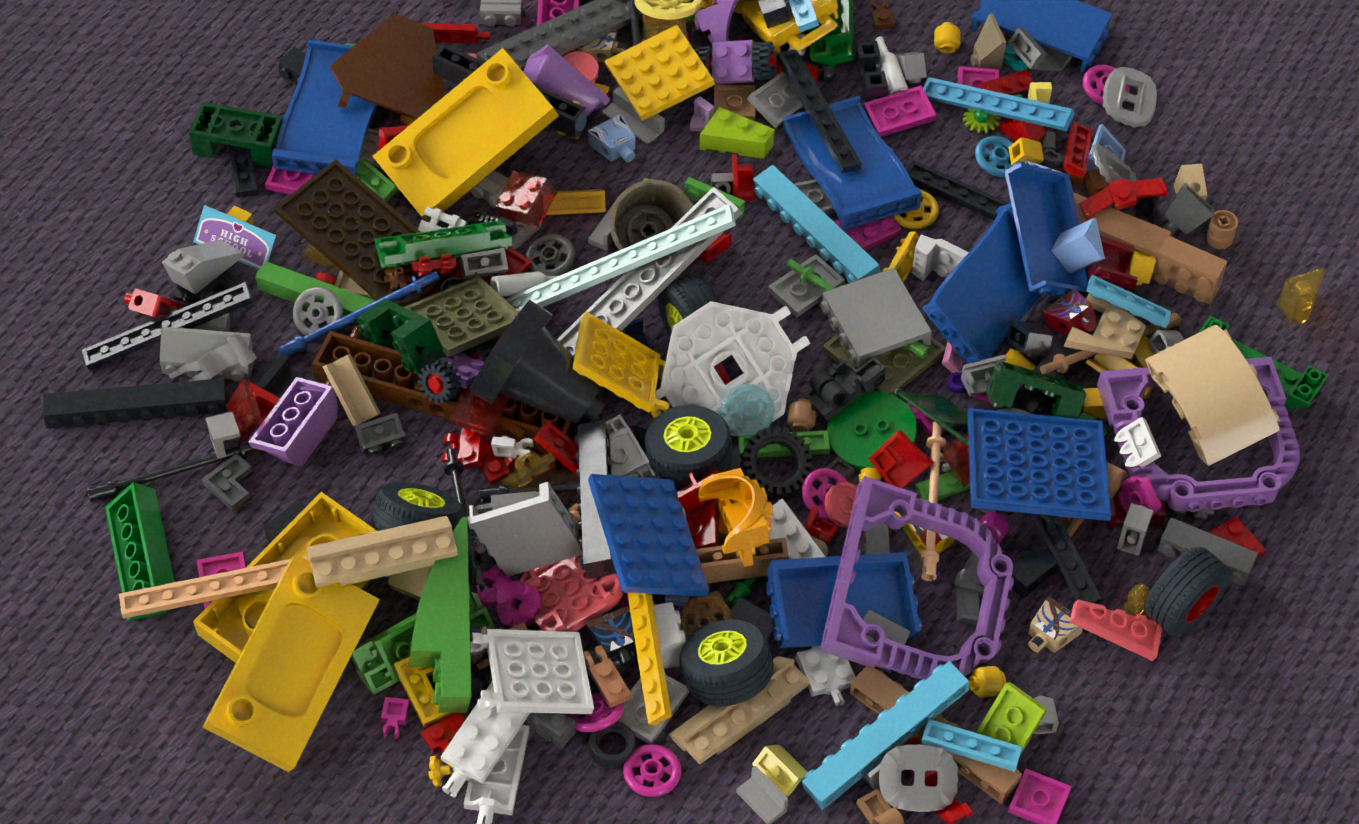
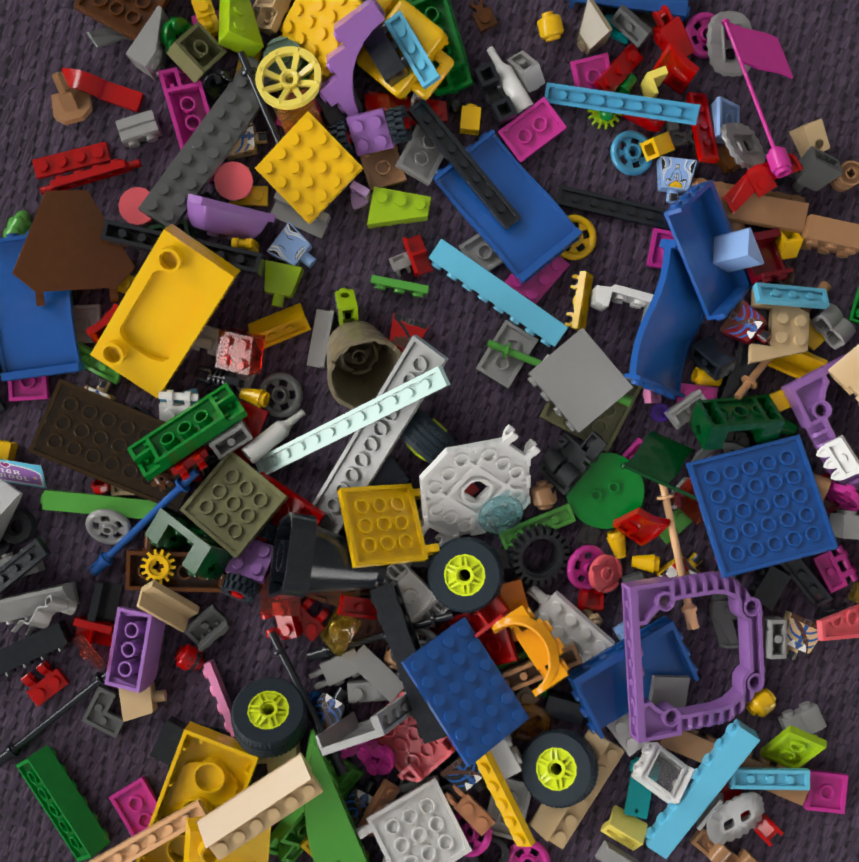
camera: 15 degrees left, 35 degrees up
(179, 442) = (48, 686): none -> red plate
(222, 428) = (78, 677): light grey panel -> none
(275, 478) = (140, 704): none -> tan torso
(347, 456) = (189, 658): none -> red head
(355, 343) = (151, 561): none -> yellow gear
(366, 492) = (219, 691): none -> bright pink plate
(424, 16) = (71, 160): none -> red plate
(507, 447) = (316, 616): white plate -> none
(525, 245) = (256, 397): none -> yellow cone
(593, 162) = (281, 281): none -> lime torso
(818, 729) = (637, 796): none -> teal door
(838, 87) = (470, 119): none -> yellow brick
(842, 705) = (662, 773): none -> white window
(1020, 616) = (774, 637): none -> light grey brick
(1066, 92) = (679, 68): none -> red plate
(1067, 72) = (670, 29): none -> red brick
(1107, 576) = (830, 571): none -> dark pink plate
(1160, 109) = (766, 54): none -> dark pink flag

